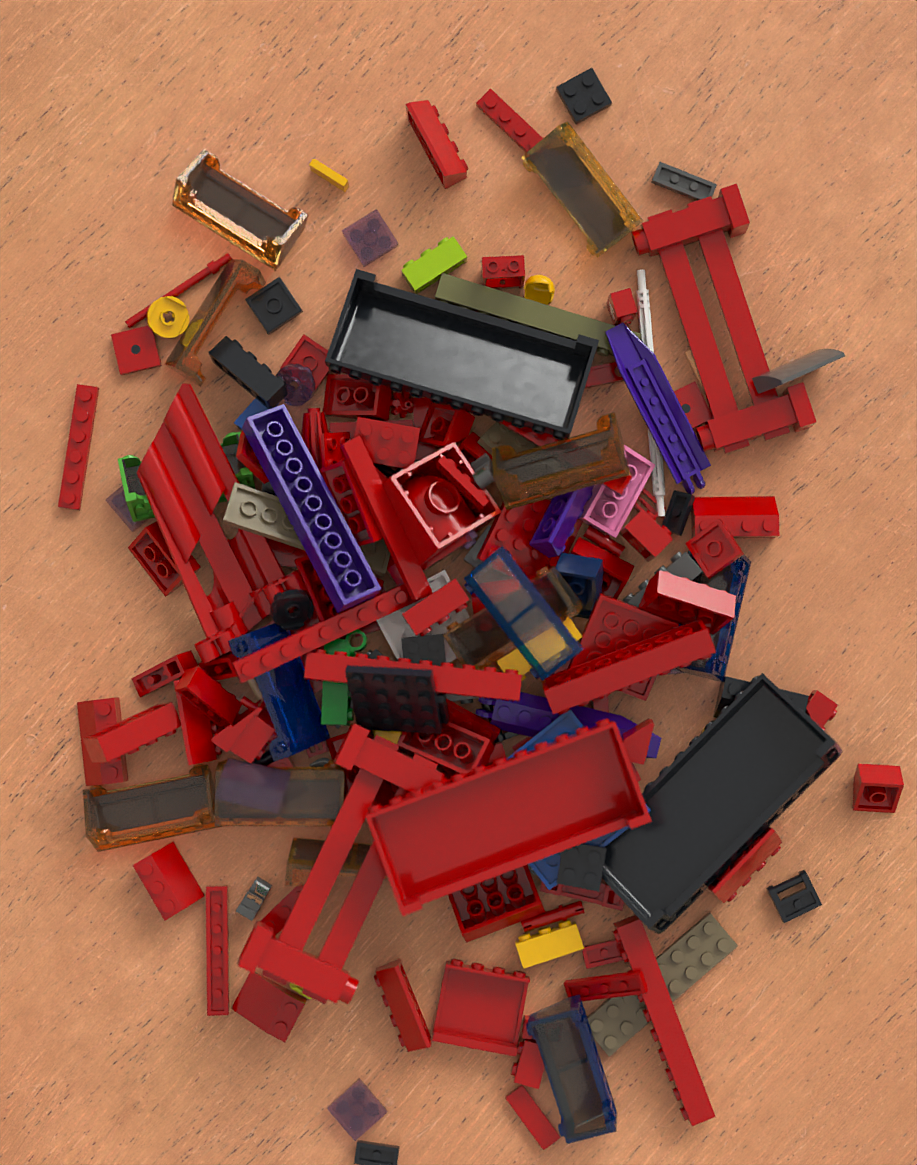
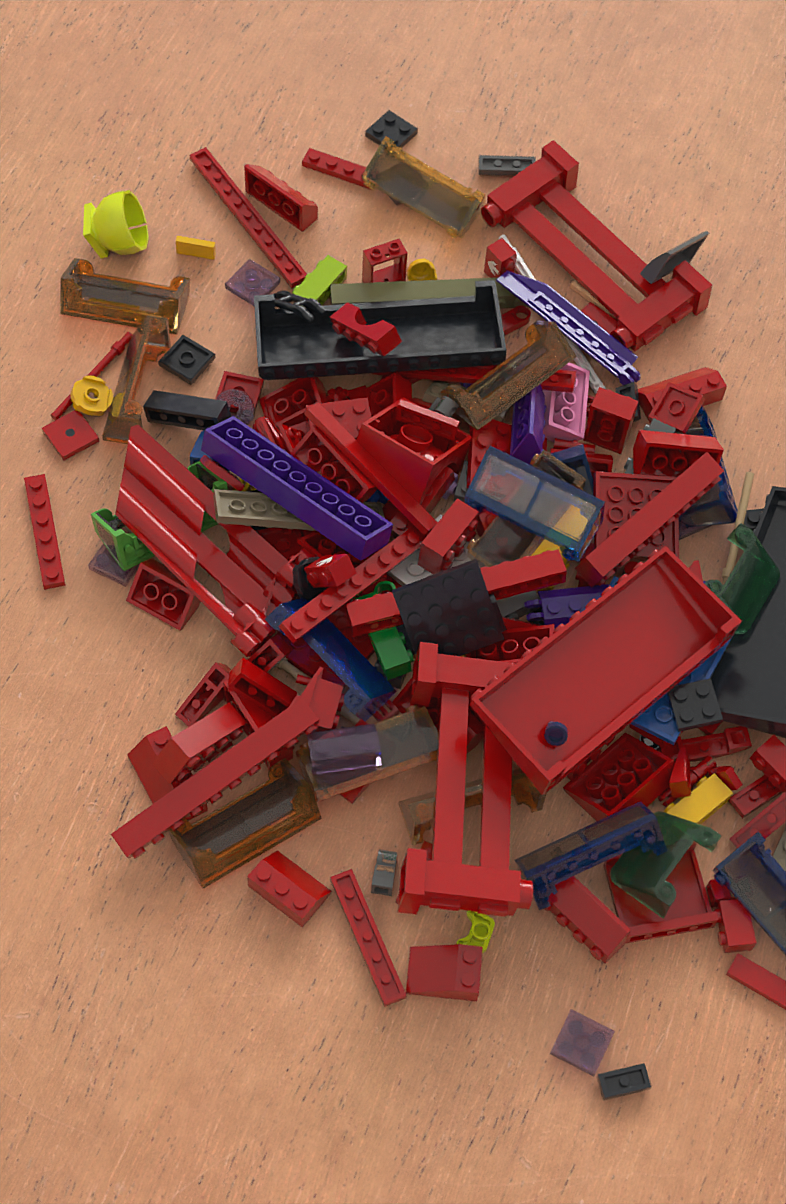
camera: 25 degrees left, 25 degrees down
(134, 773) = (215, 778): none -> red brick
(248, 130) = (109, 223): none -> neon yellow plate
(302, 617) = (330, 570): none -> red brick
(393, 294) = (283, 300): none -> black piece
(395, 154) = (248, 217): none -> red plate
(428, 960) = (588, 848): none -> clear blue windscreen
(435, 861) = (556, 733): none -> dark blue tile
(452, 370) = (378, 337): none -> red arch
(487, 985) = (646, 873): none -> clear green windscreen
(545, 916) = (681, 775): none -> red slope
(585, 925) = (727, 776): none -> red tile
(685, 769) = (749, 580): none -> clear green windscreen
(688, 729) = (739, 519): none -> tan bar

